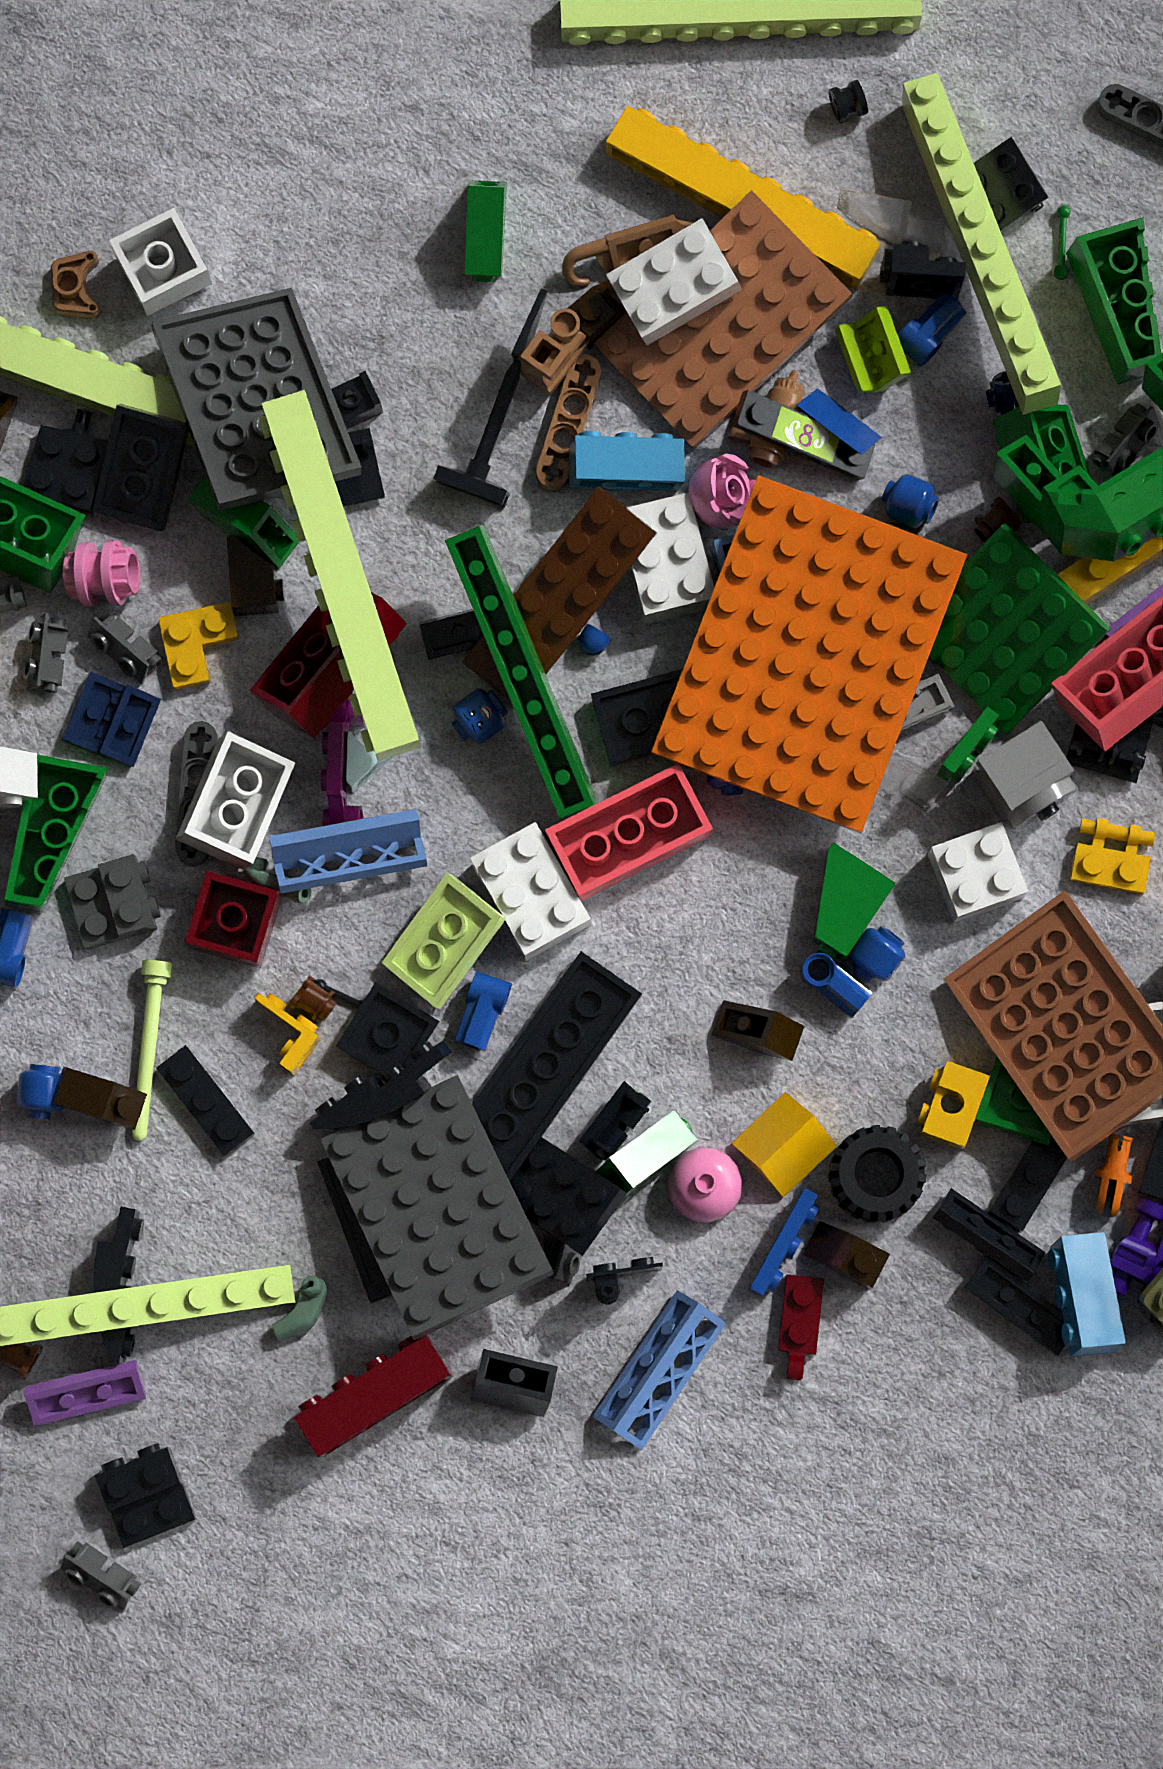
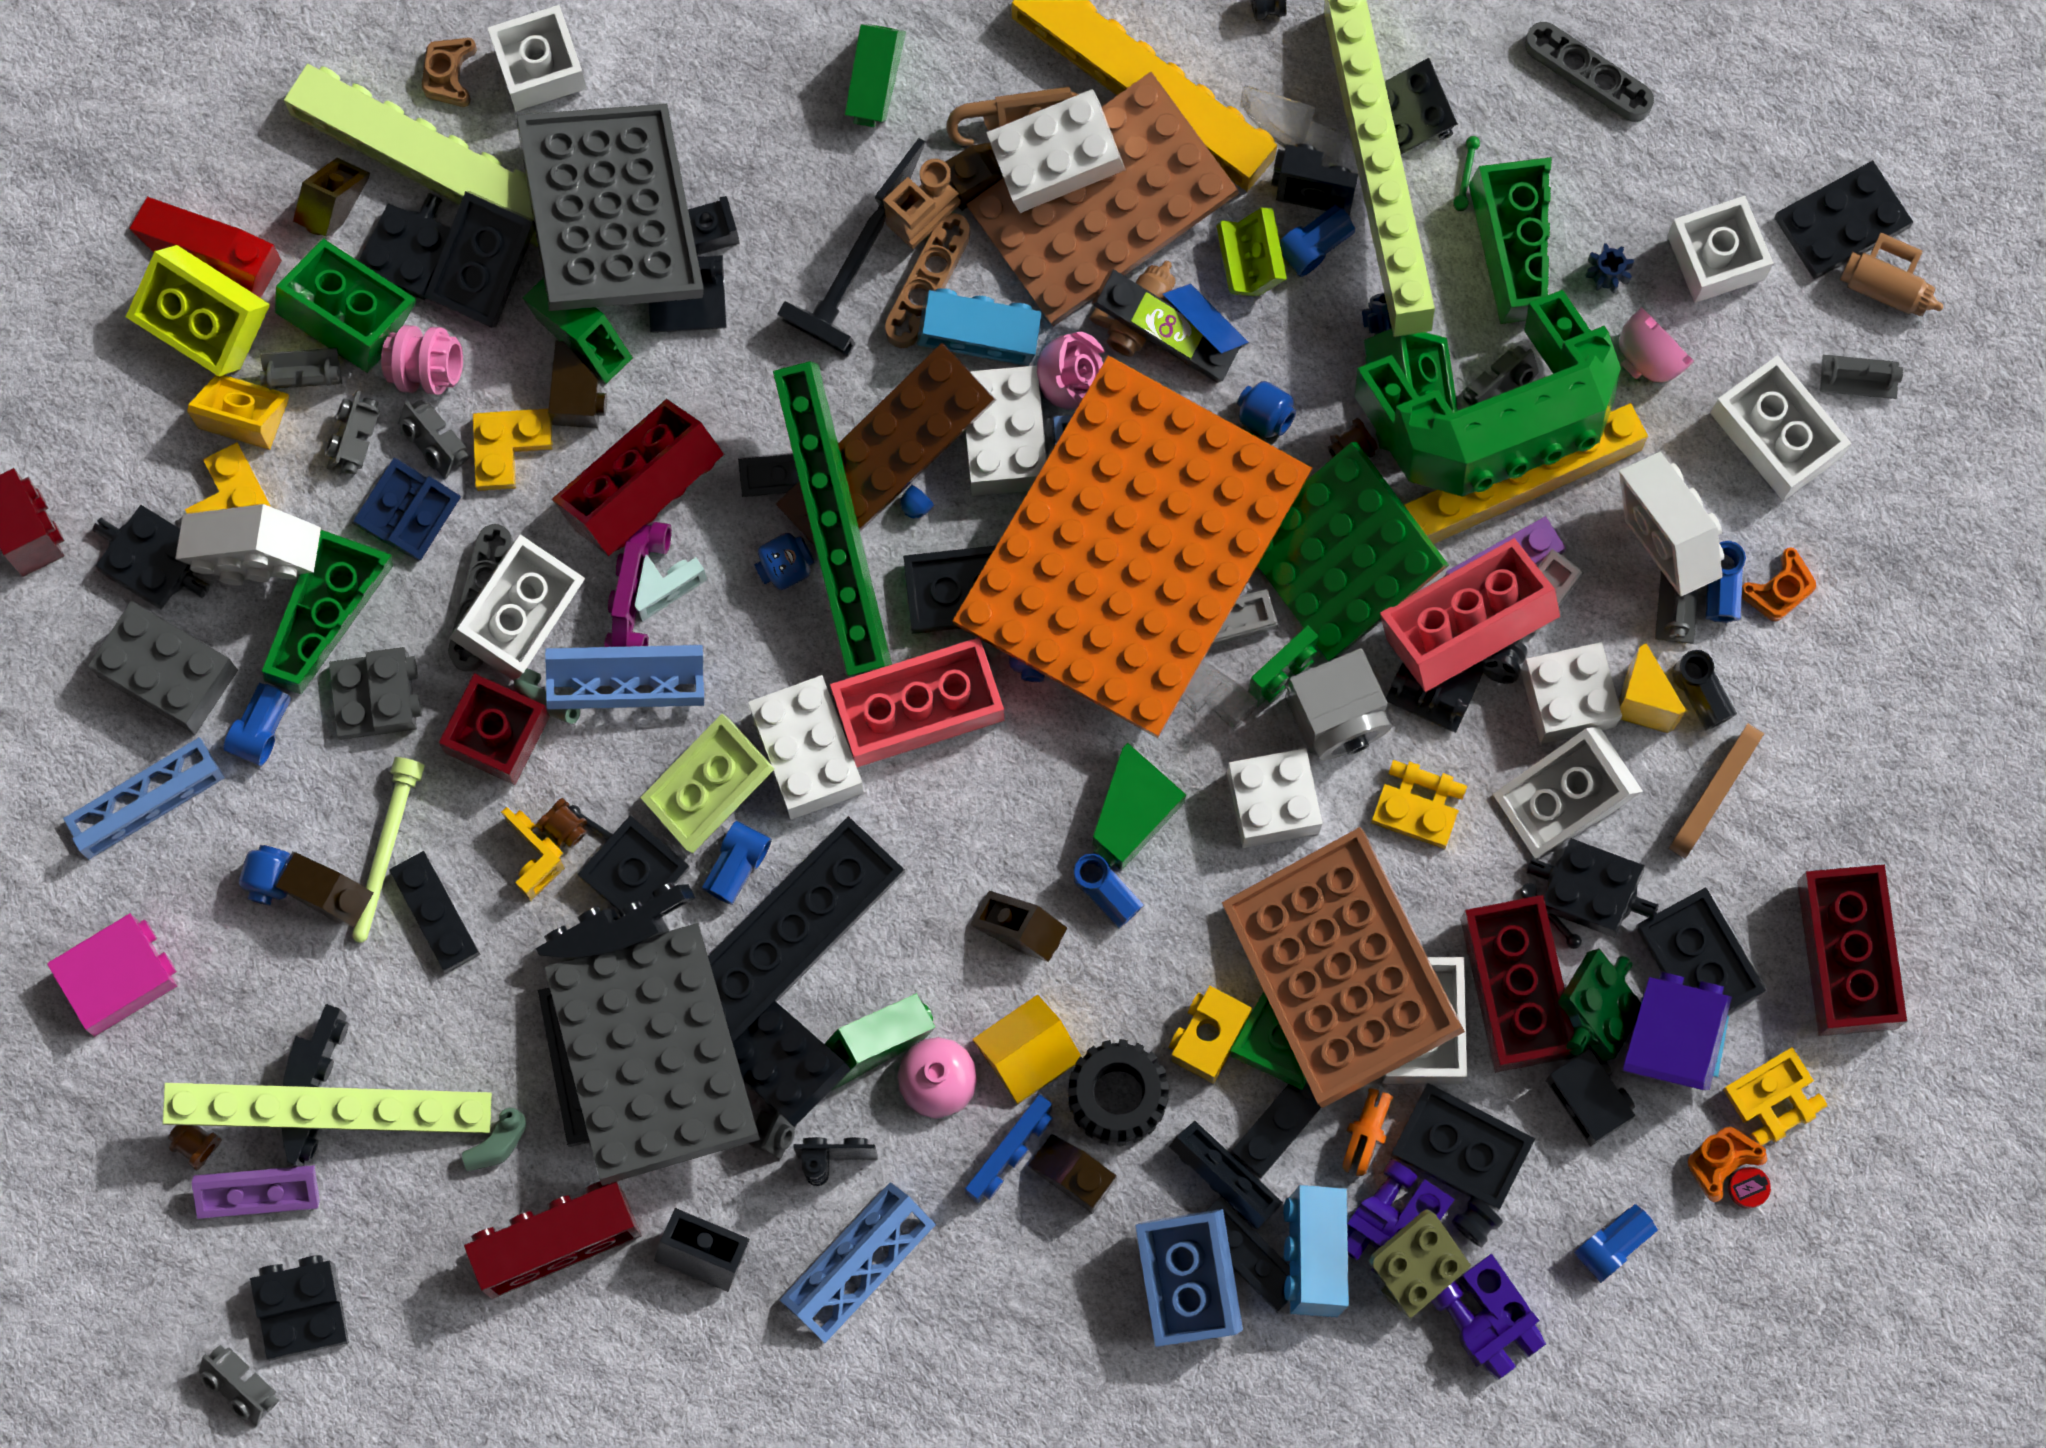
camera: 10 degrees right, 5 degrees down
(340, 575) = (660, 393): yellowish green brick -> none
(608, 1128) = (853, 995): black hinge -> none
(800, 1321) = (1013, 1234): dark red plate -> none
(877, 954) = (1156, 866): blue head -> none
(972, 1339) = (1189, 1278): none -> medium blue brick

